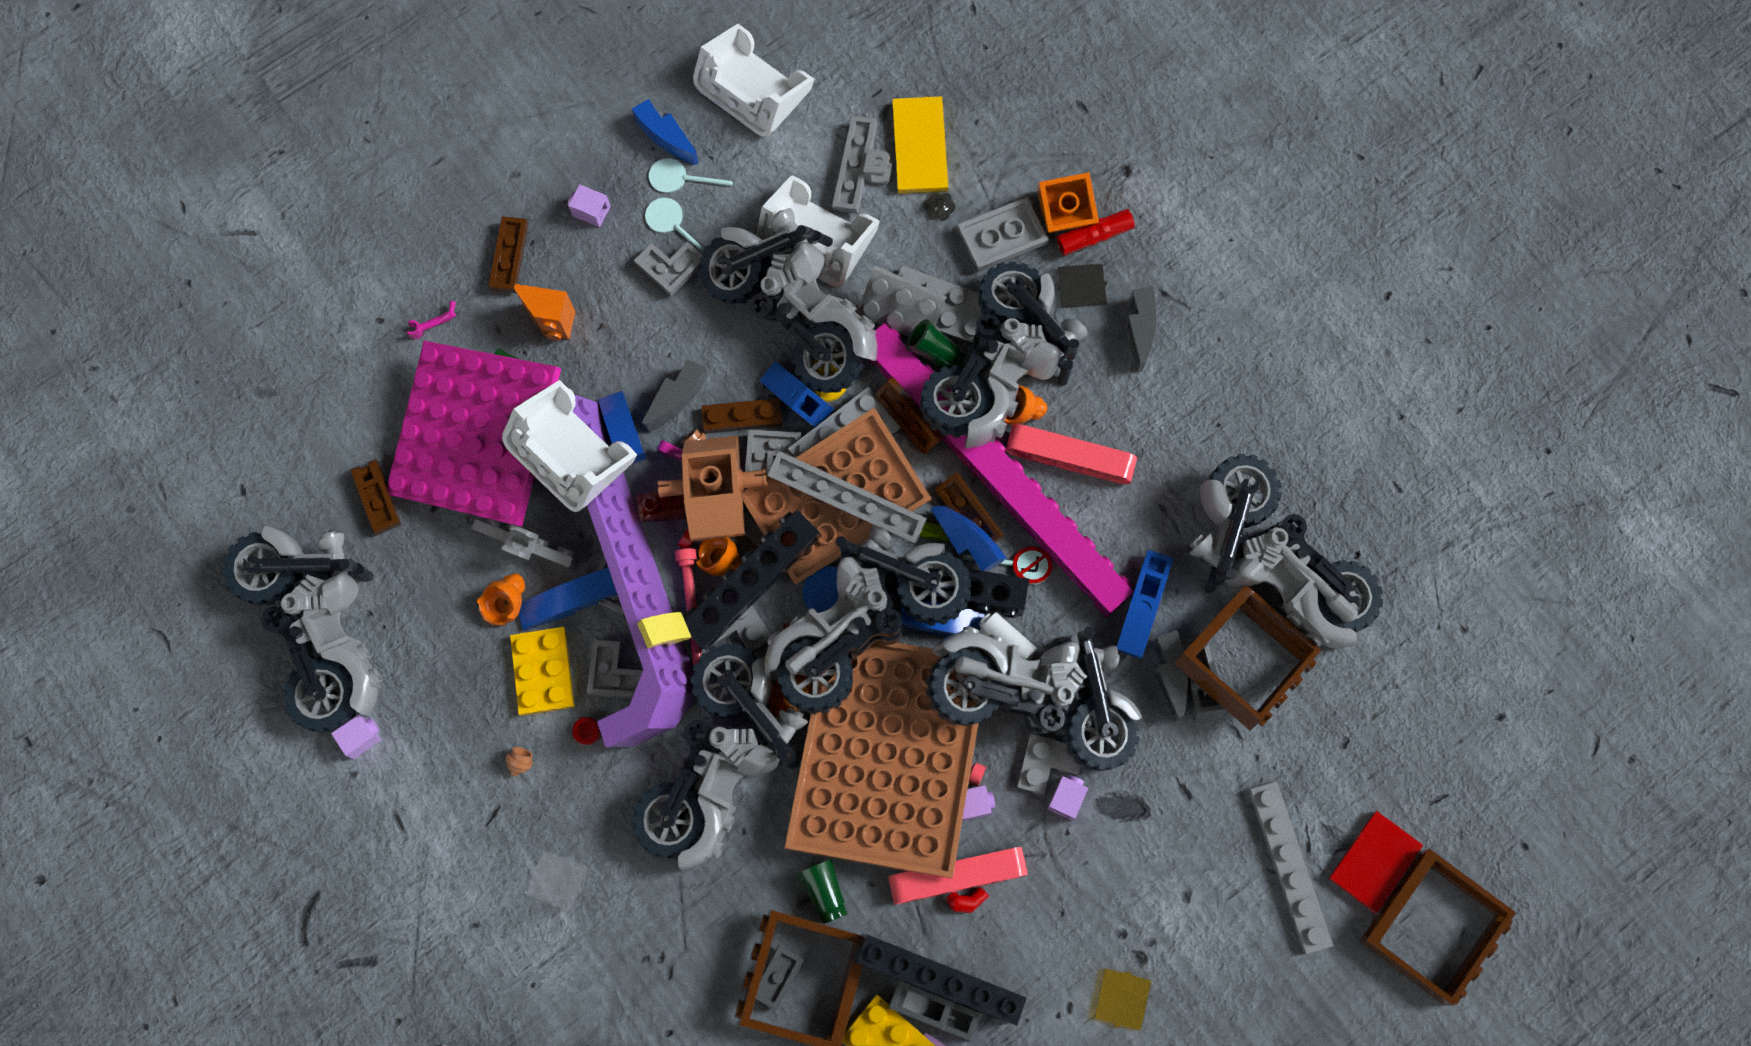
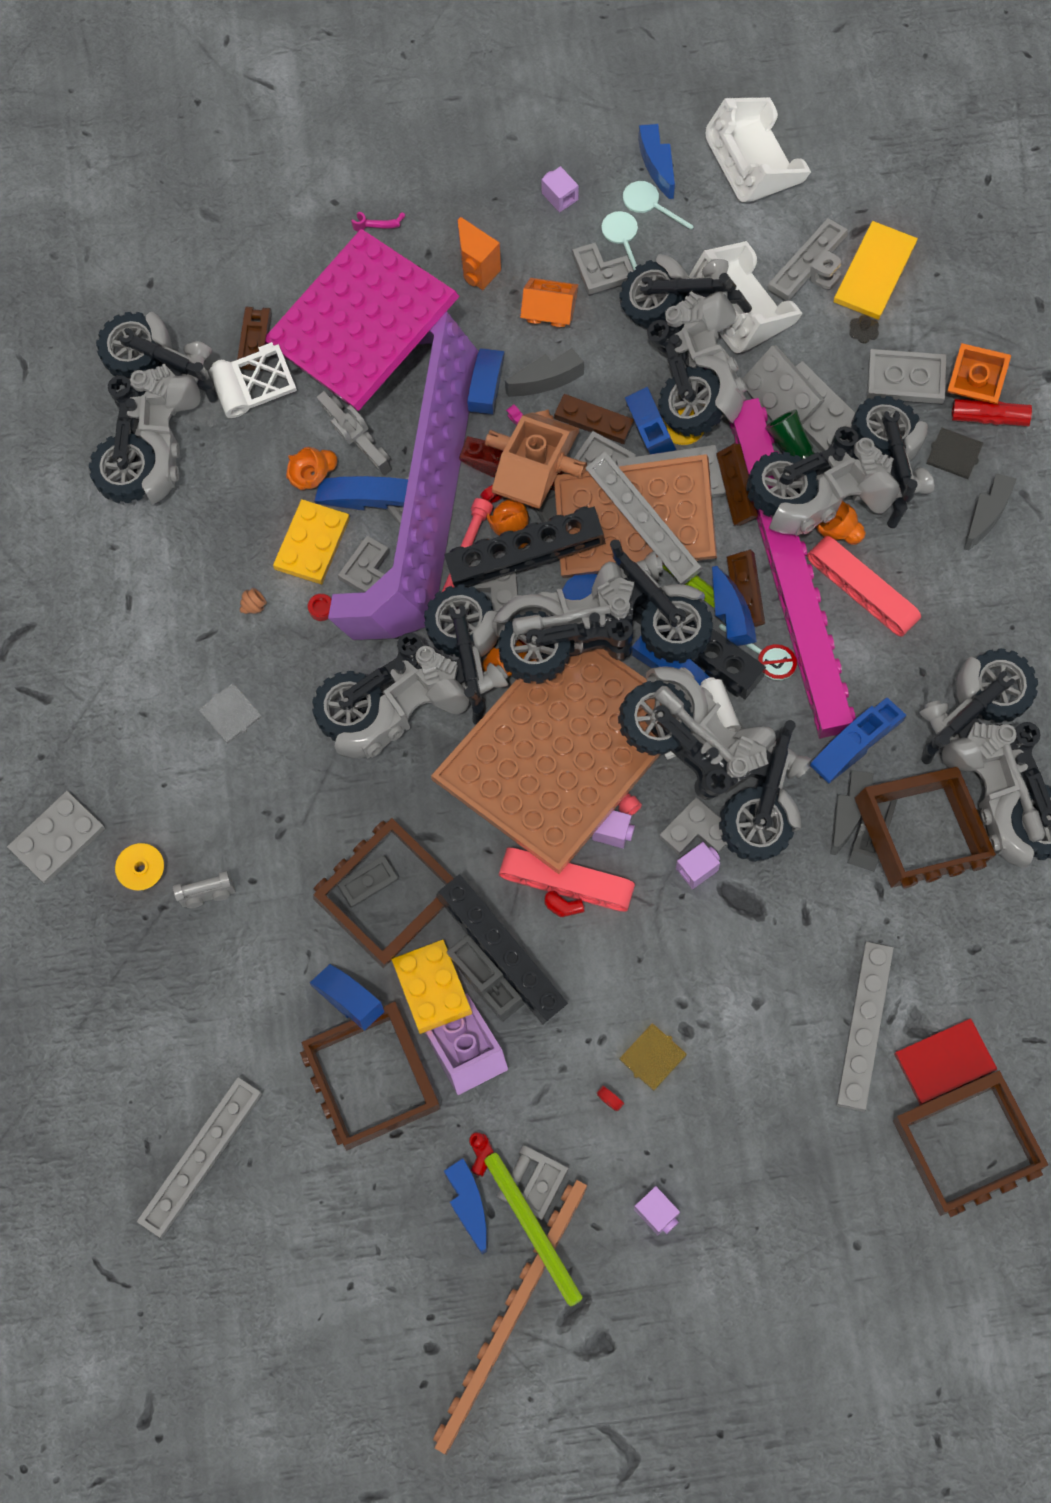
camera: 30 degrees right, 5 degrees down
(357, 736) = (134, 516): lavender brick -> none
(381, 557) = (231, 385): none -> white piece
(508, 254) = (470, 196): reddish brown plate -> none
(563, 448) = (423, 356): white windscreen -> none
(639, 321) = (548, 302): none -> orange slope
(664, 629) = (428, 545): light yellow slope -> none
(824, 890) = (445, 830): dark green plant -> none

